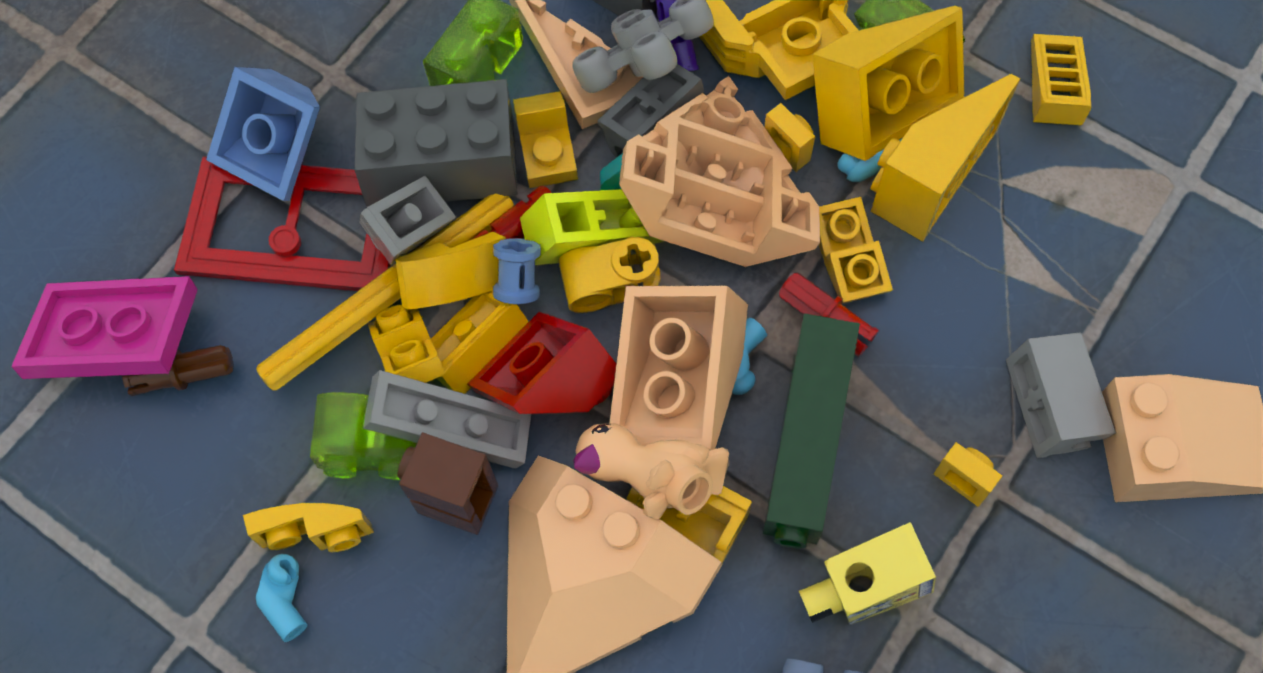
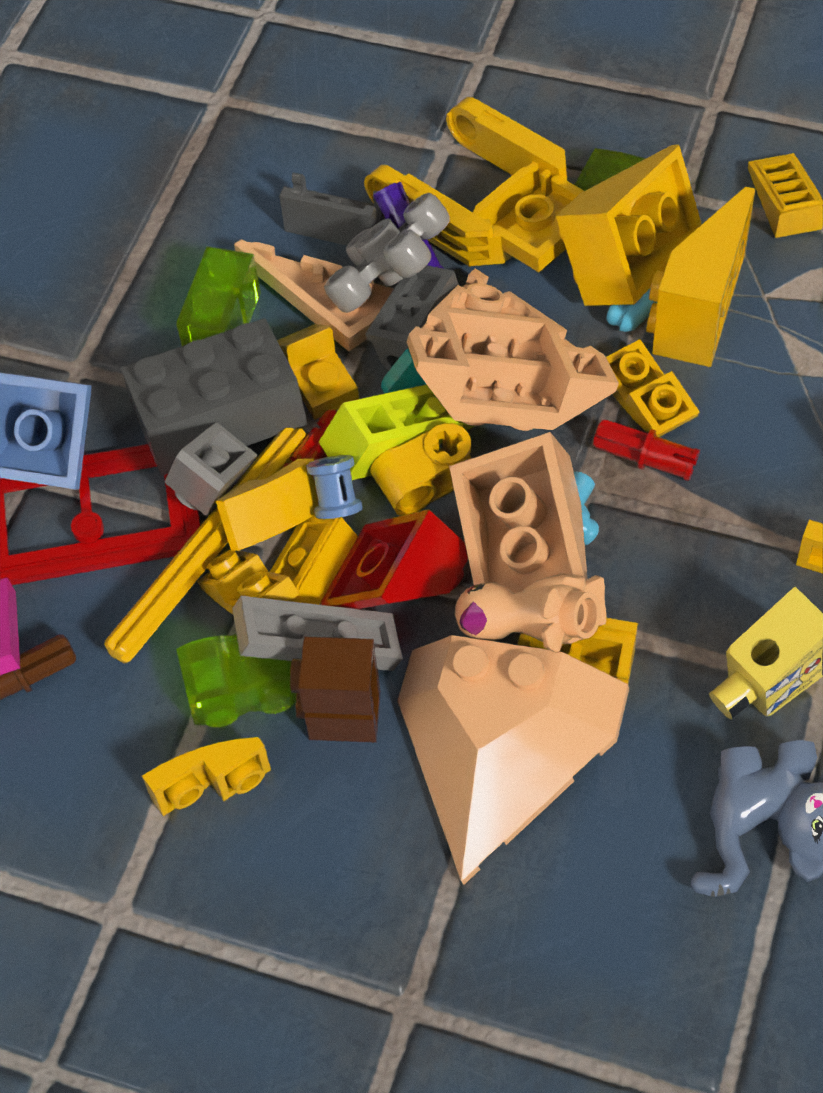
camera: 15 degrees left, 10 degrees down
(276, 596) = (195, 852): medium azure arm -> none
(791, 135) = (555, 301): yellow plate -> none
(810, 430) = (669, 547): dark green slope -> none

